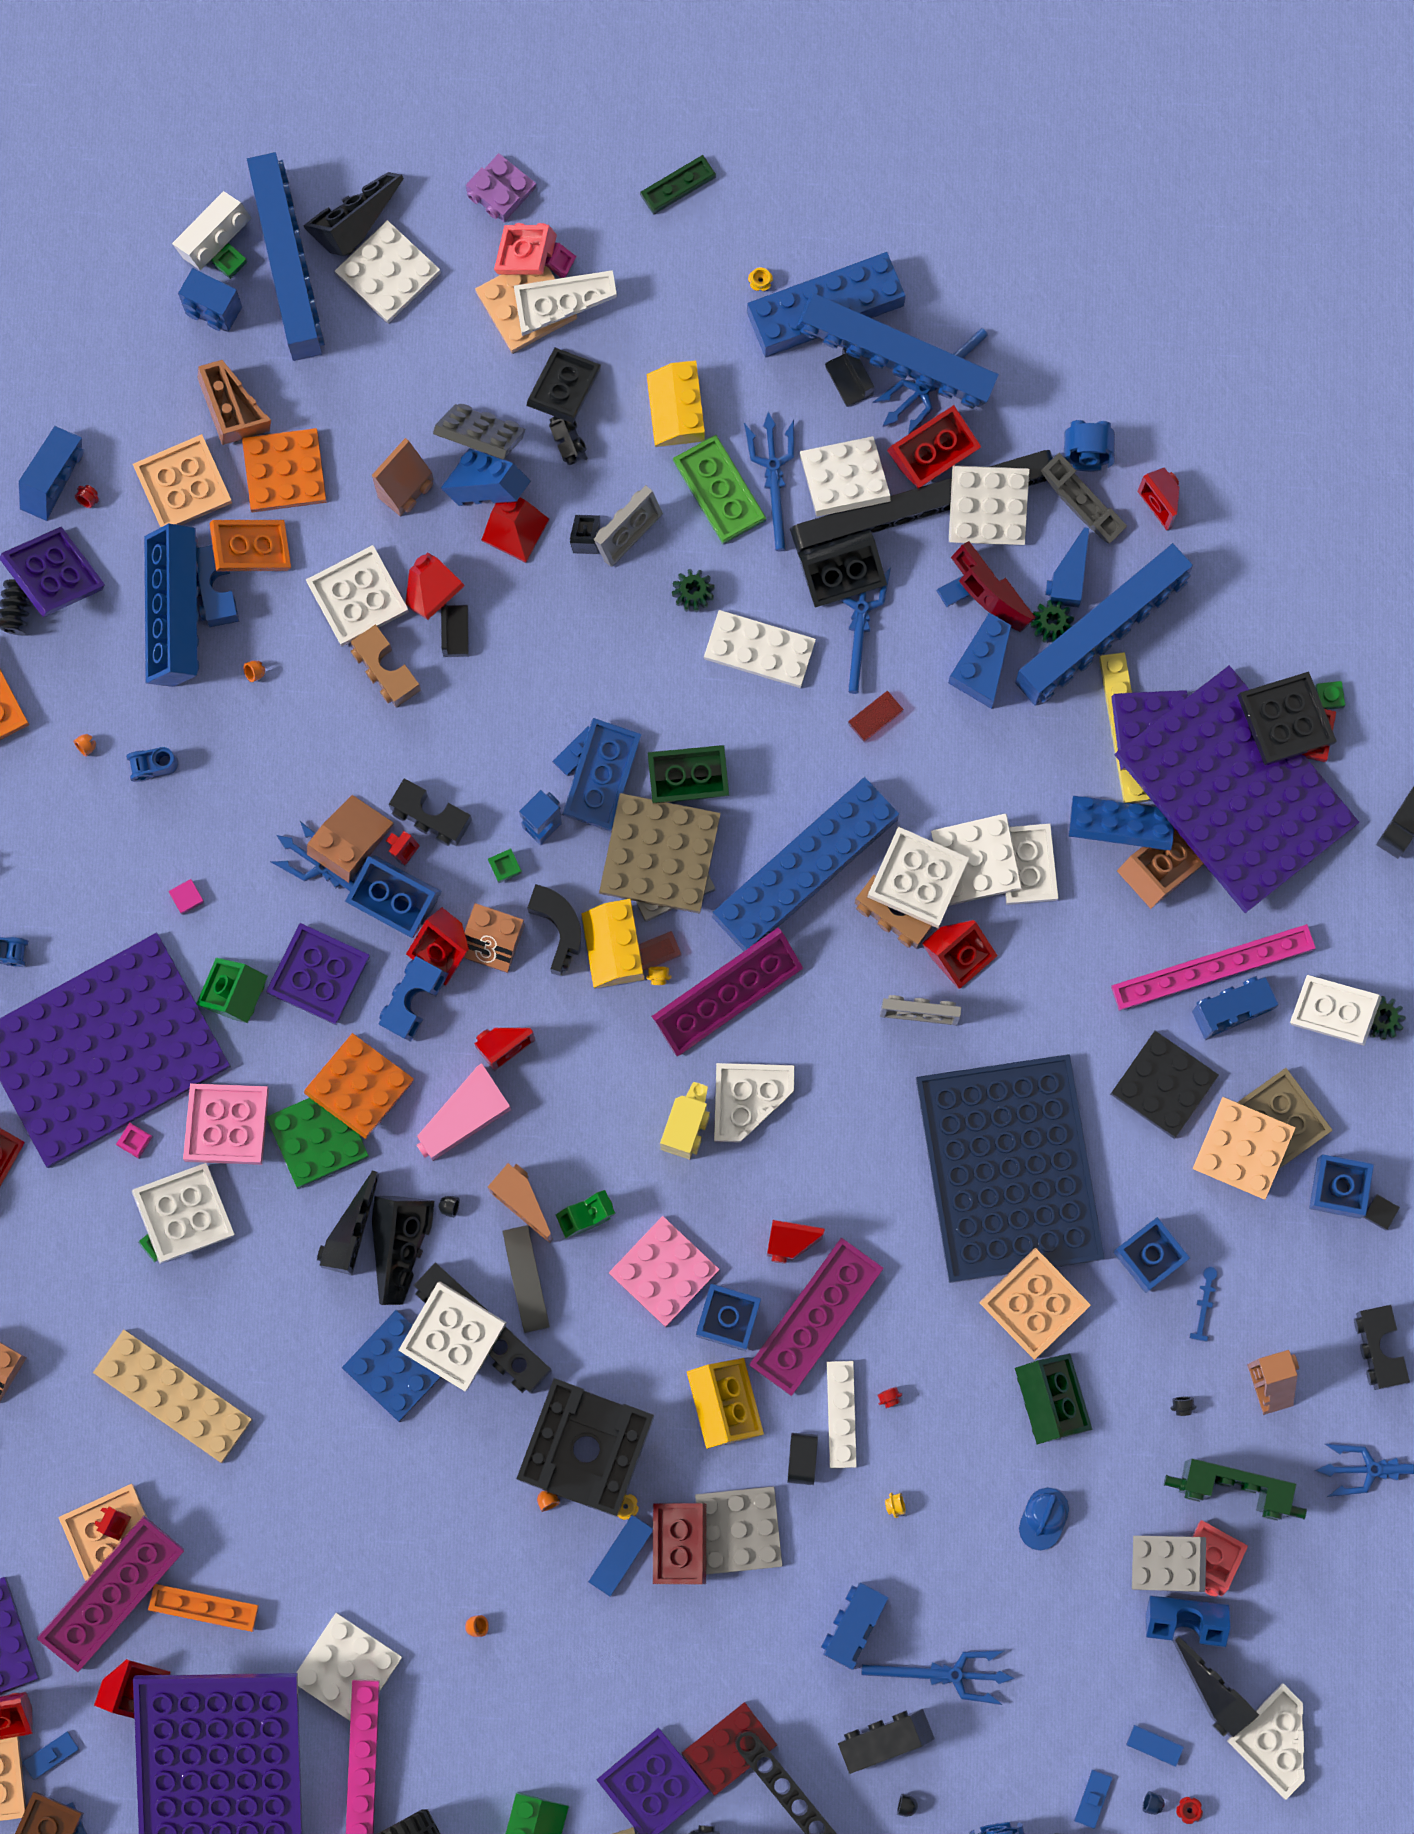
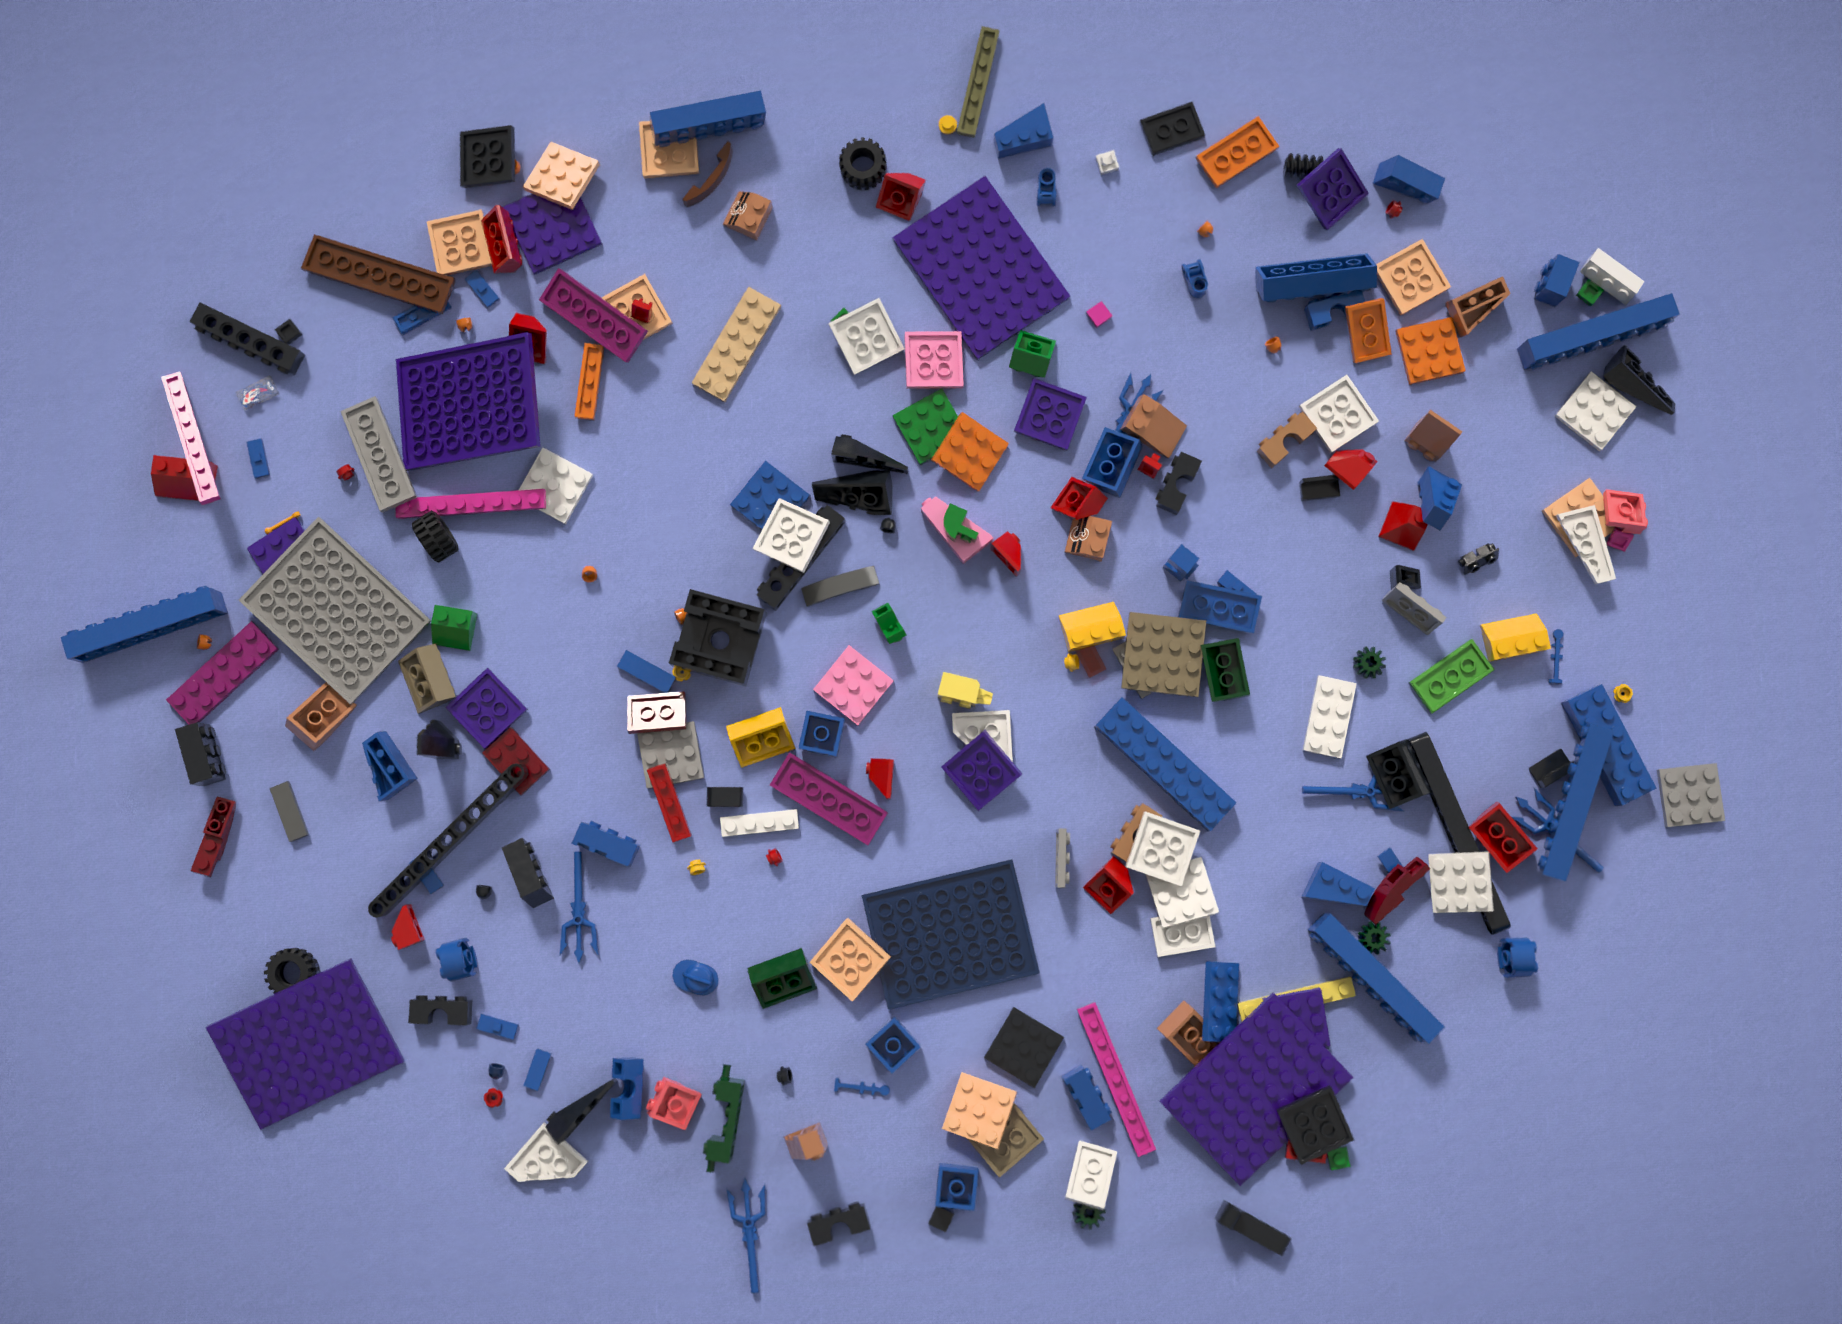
camera: 90 degrees right, 5 degrees up
(98, 1783) = (464, 322): none -> orange hinge
(134, 1140) = (917, 297): dark pink tile -> none
(398, 1014) = (1024, 475): blue arch -> none
(457, 1113) = (954, 526): none -> green brick
(479, 430) = (1476, 489): dark grey plate -> none
(500, 188) = (1672, 488): medium lavender plate -> none
(504, 865) = (1143, 541): green plate -> none
(515, 1192) = (896, 575): nougat slope -> none
(555, 908) = (1109, 588): black arch -> none
(563, 385) = (1520, 550): black tile -> none
(676, 351) = (1557, 634): none -> blue piece
(678, 184) = (1692, 624): dark green tile -> none
(727, 992) = (1063, 713): magenta plate -> none
(773, 473) = (1468, 716): blue piece -> none
(794, 1106) = (981, 770): none -> dark purple plate
(804, 1535) = (669, 802): none -> red plate
(845, 476) = (1471, 770): white plate -> none
(875, 716) = (1286, 808): clear red tile -> none
(897, 212) = (1690, 795): none -> light grey plate
(1069, 576) = (1411, 948): blue slope -> none
(1082, 500) = (1473, 955): dark grey slope -> none
(1161, 494) = (1485, 1016): red slope -> none
(1169, 1563) = (666, 1071): light grey plate -> none

